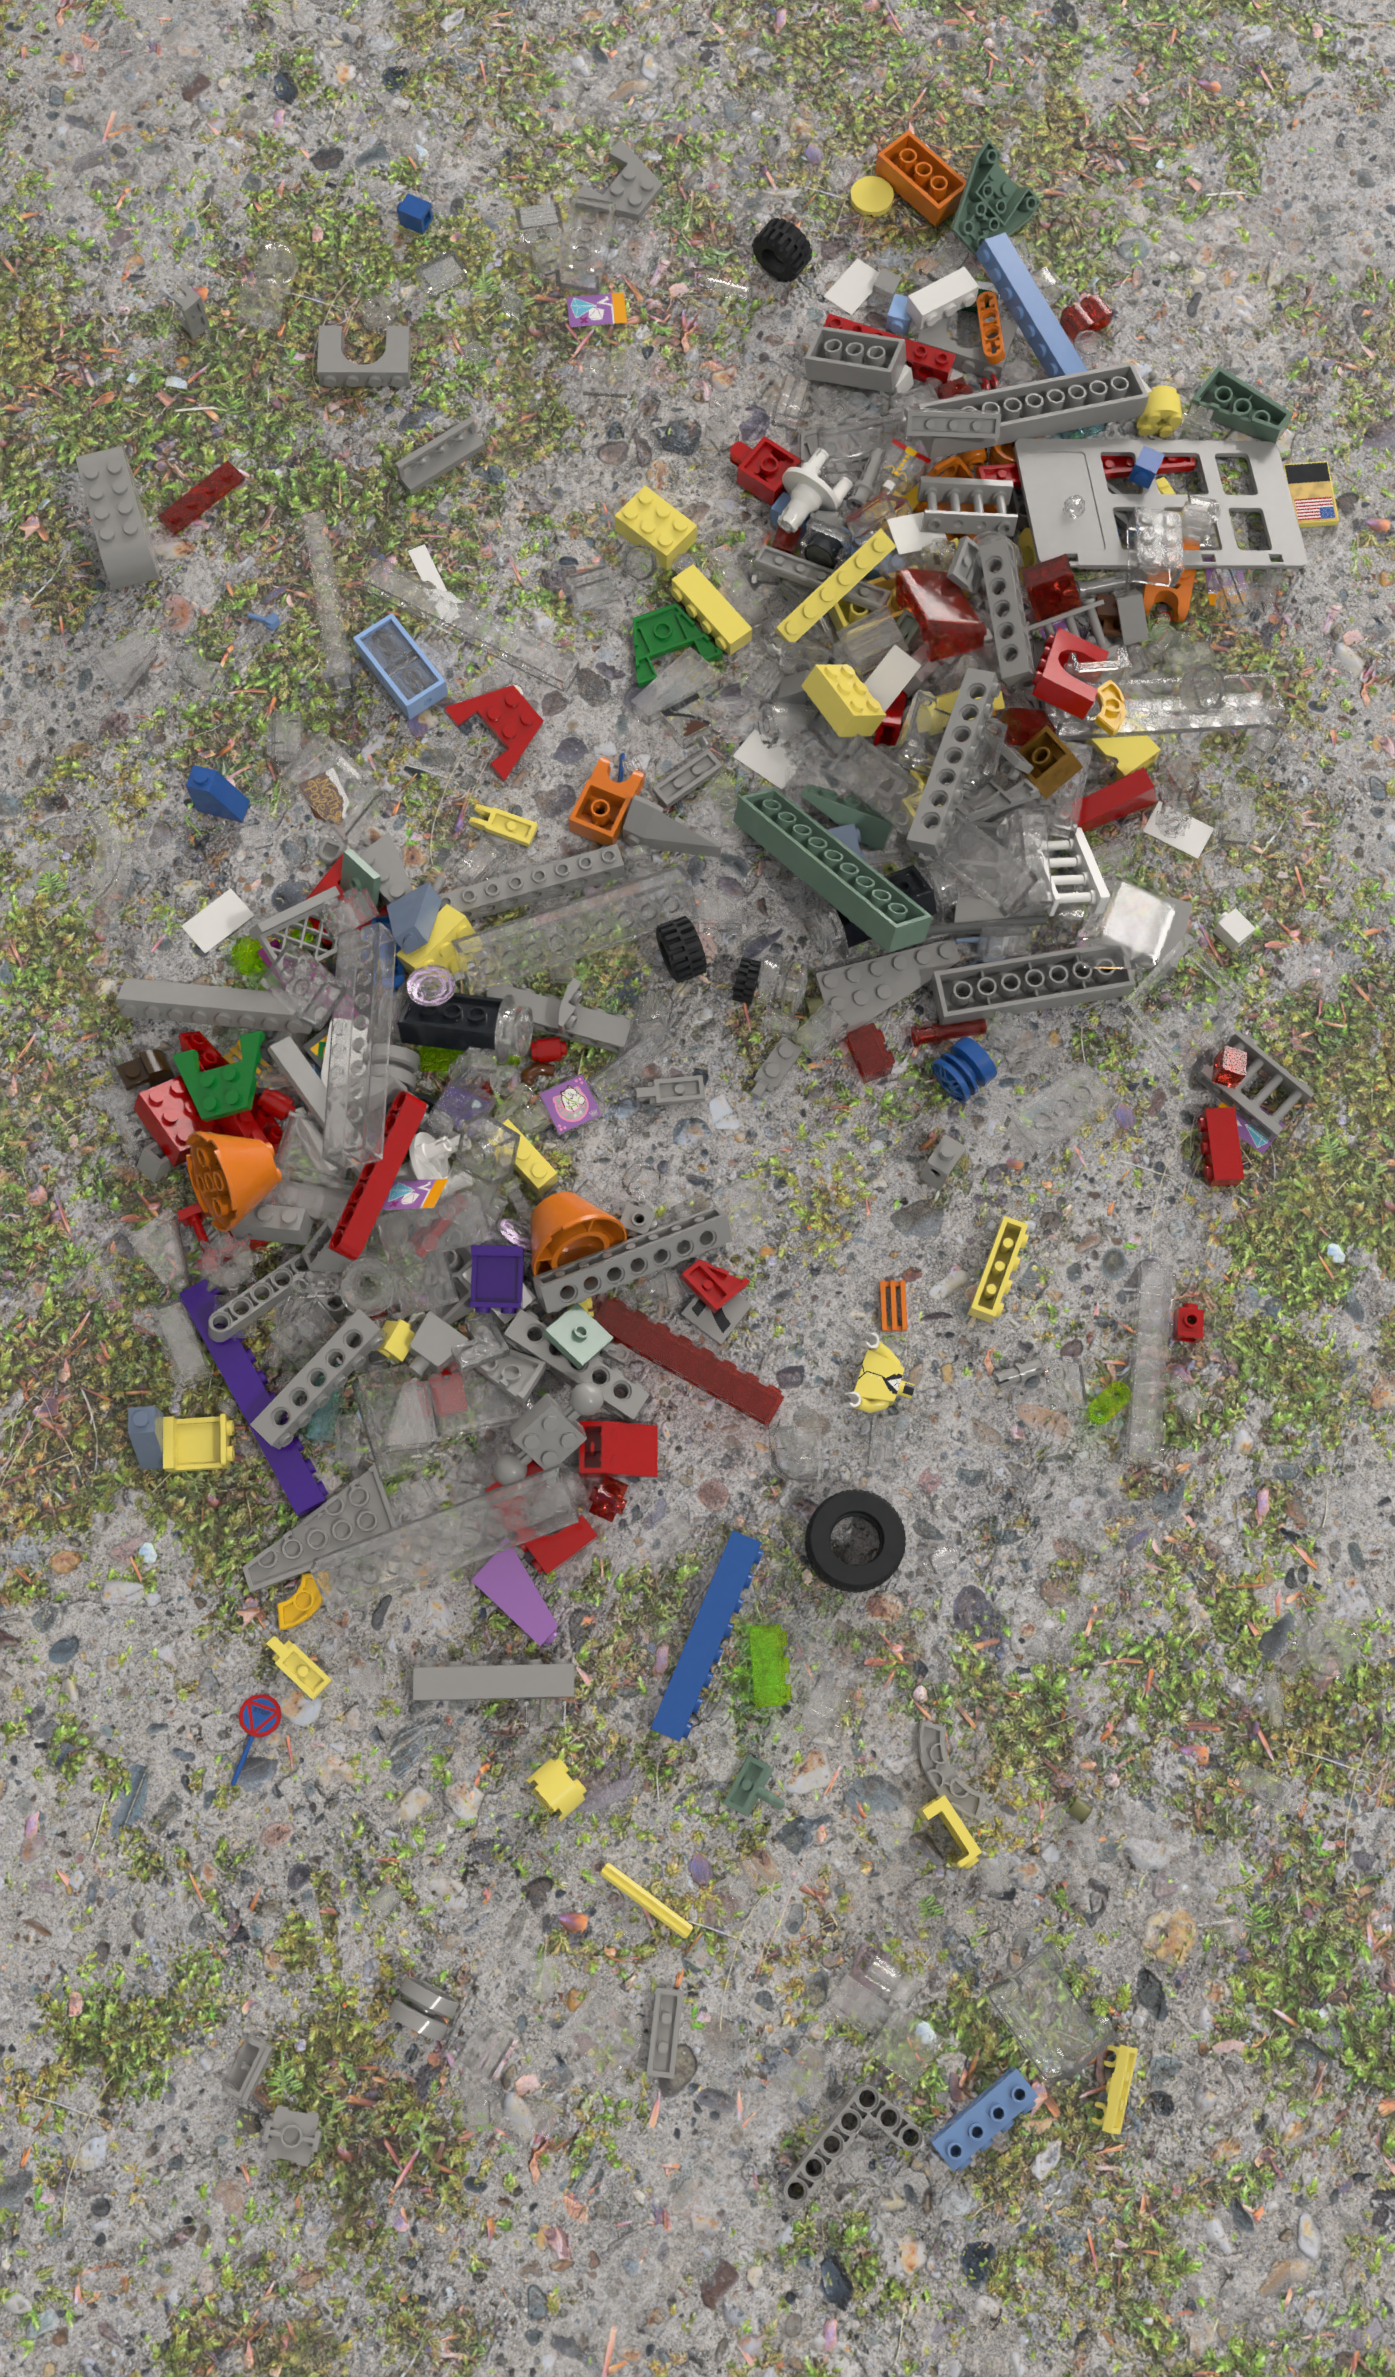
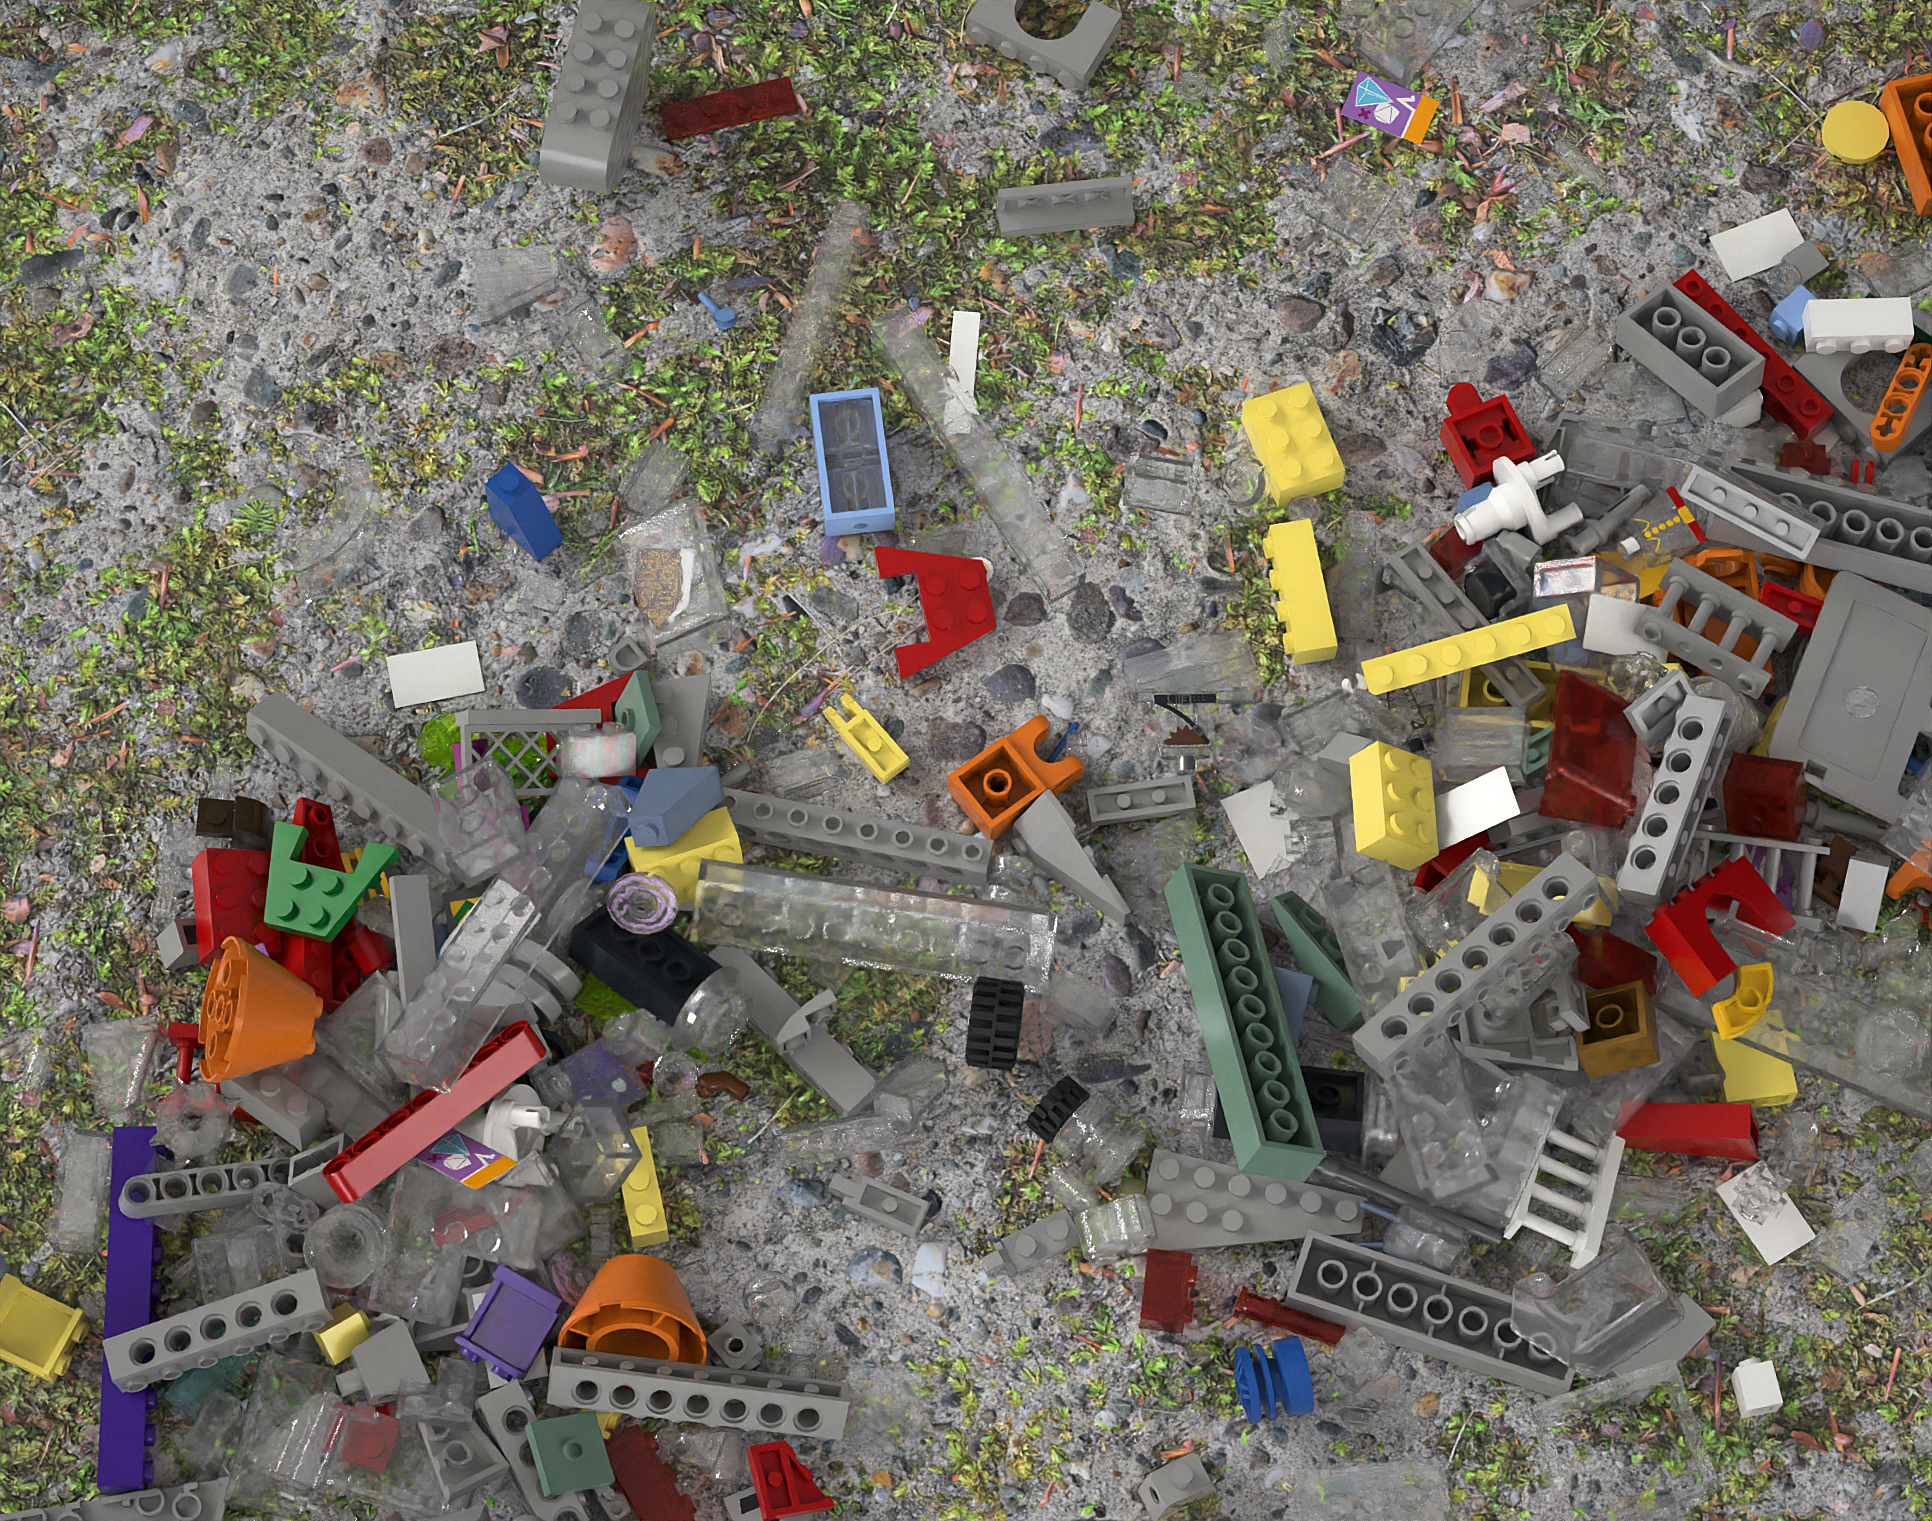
camera: 30 degrees right, 5 degrees down
(548, 1049) = (753, 1063): red brick -> none
(571, 1105) = (740, 1151): tile -> none
(663, 633) = (1224, 591): green wing -> none
(782, 249) = (1679, 151): black tyre -> none

